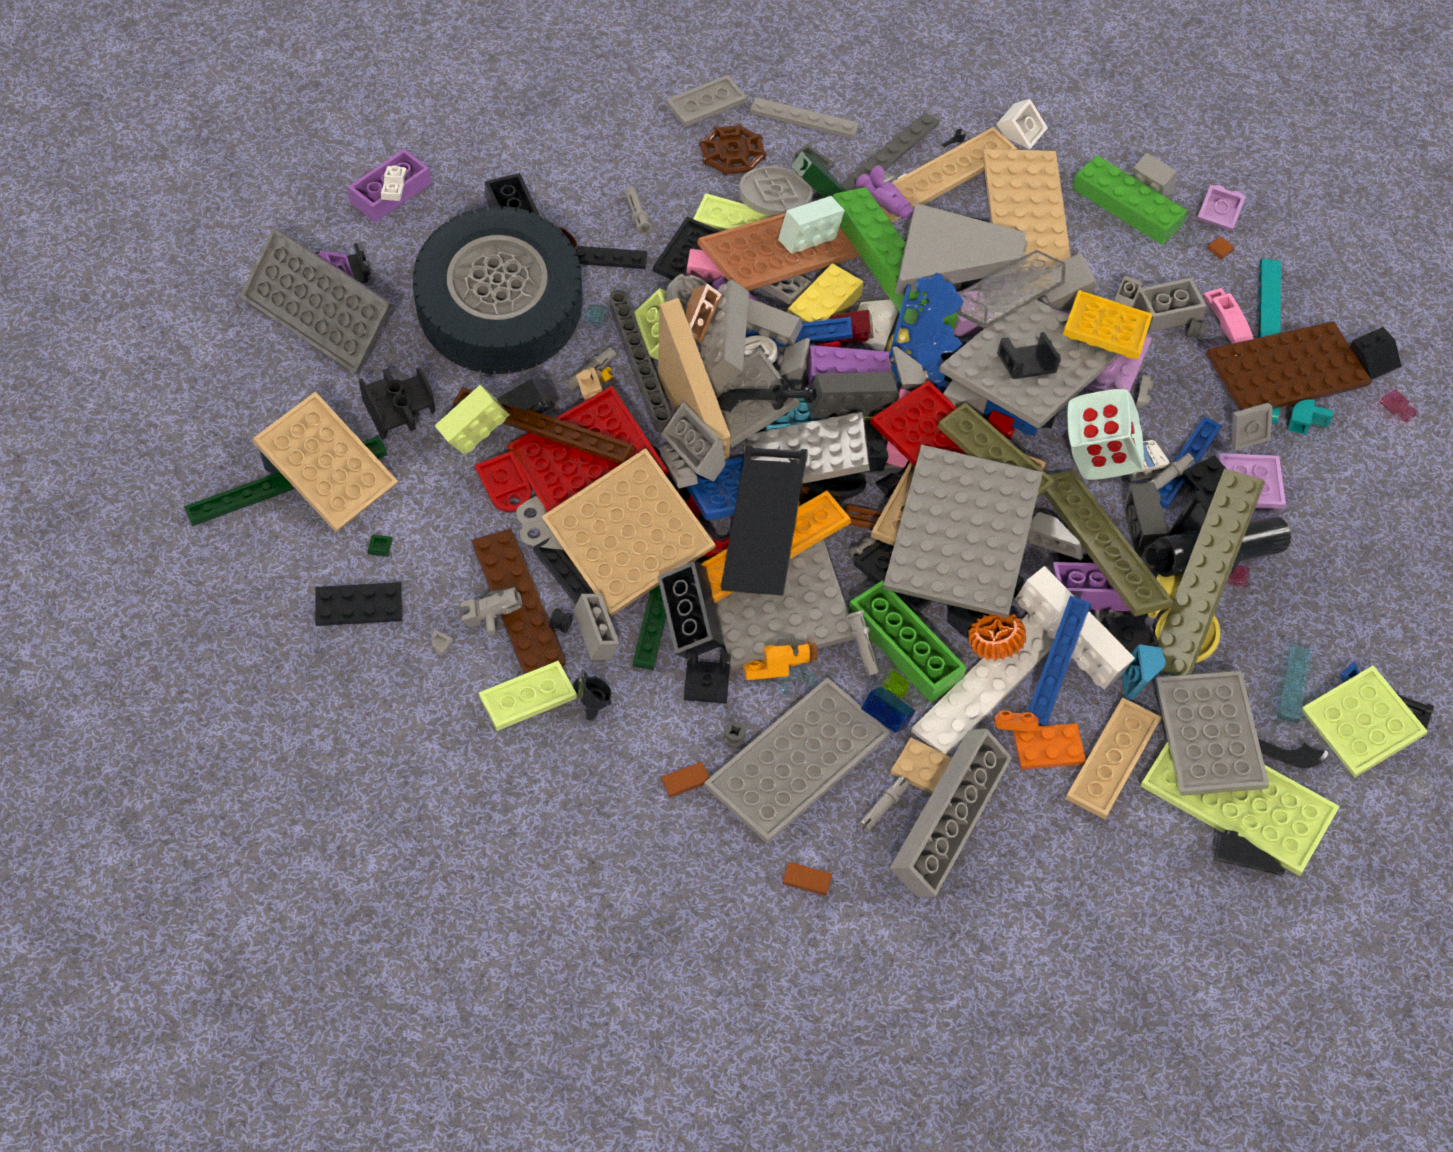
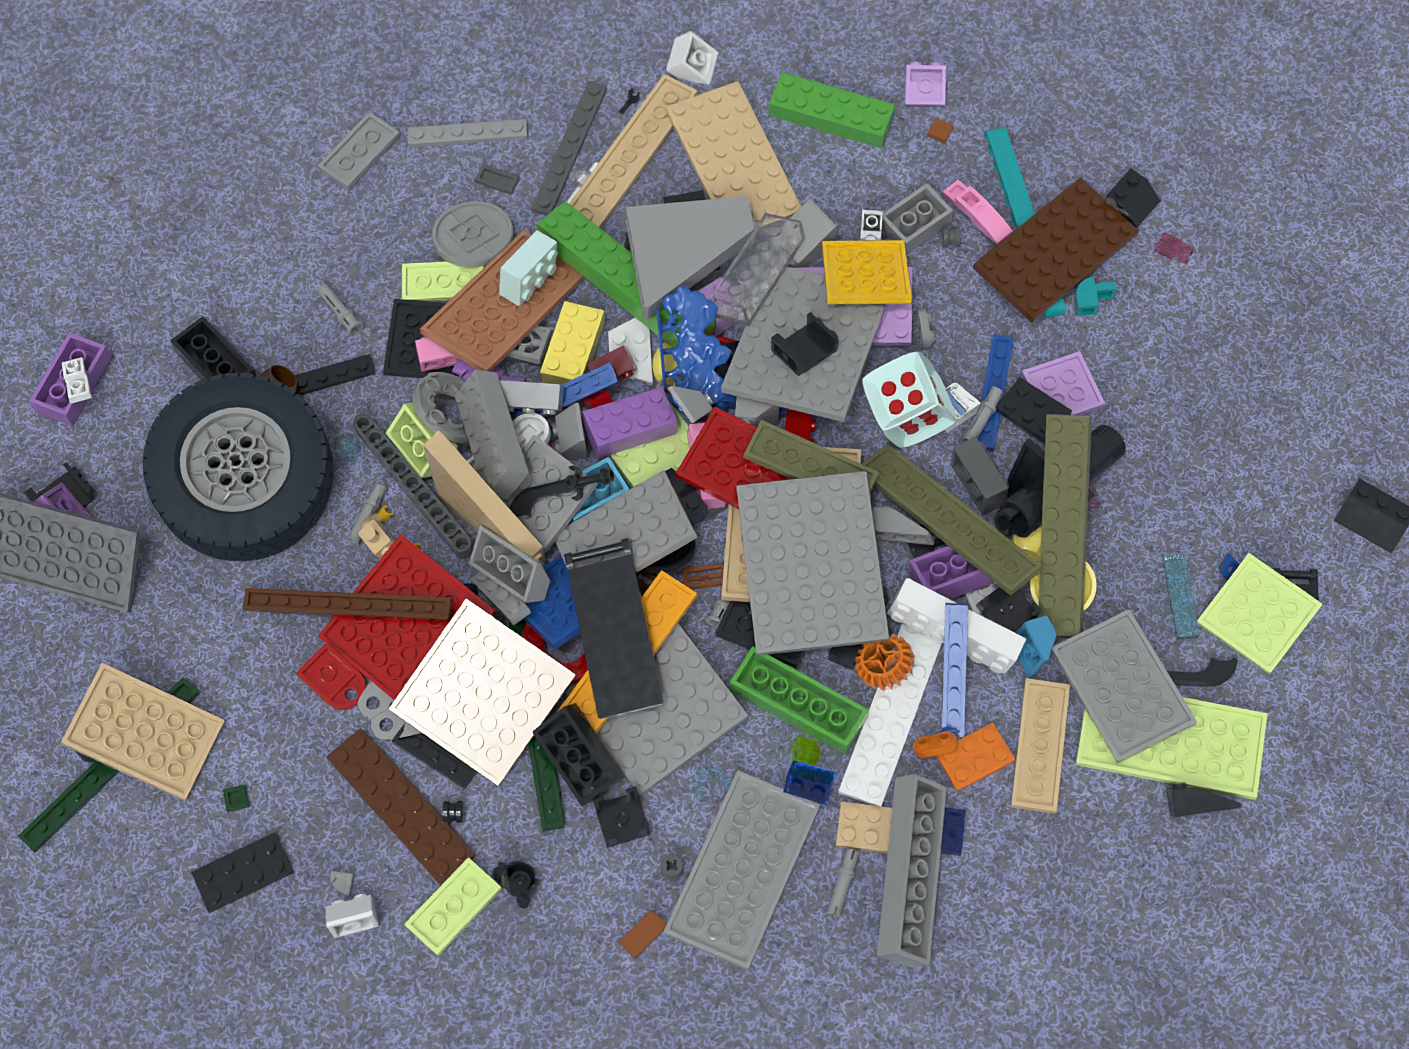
camera: 15 degrees left, 10 degrees up
(394, 401) = (175, 640): black piece -> none
(436, 670) = (351, 916): none -> white slope
(472, 420) = (274, 627): yellowish green brick -> none
(488, 608) = (380, 822): light grey piece -> none
(531, 395) = (322, 577): black slope -> none
(596, 627) = (491, 806): light grey brick -> none
(701, 310) = (457, 417): medium nougat slope -> none
(731, 137) = (411, 208): reddish brown plate -> none
(779, 657) = (683, 770): light orange plate -> none
(807, 878) = (800, 992): dark orange tile -> none
(816, 175) = (511, 202): dark green slope -> none
(852, 393) = (646, 452): dark grey brick -> none
(860, 633) = (752, 711): light grey pin -> none
(886, 193) = (588, 199): medium lavender piece -> none
(888, 484) = (715, 529): black slope -> none
(1002, 798) = (953, 831): none -> clear blue plate
(1155, 174) = (848, 75): light grey slope -> none
(1251, 426) = (1043, 330): light grey plate -> none

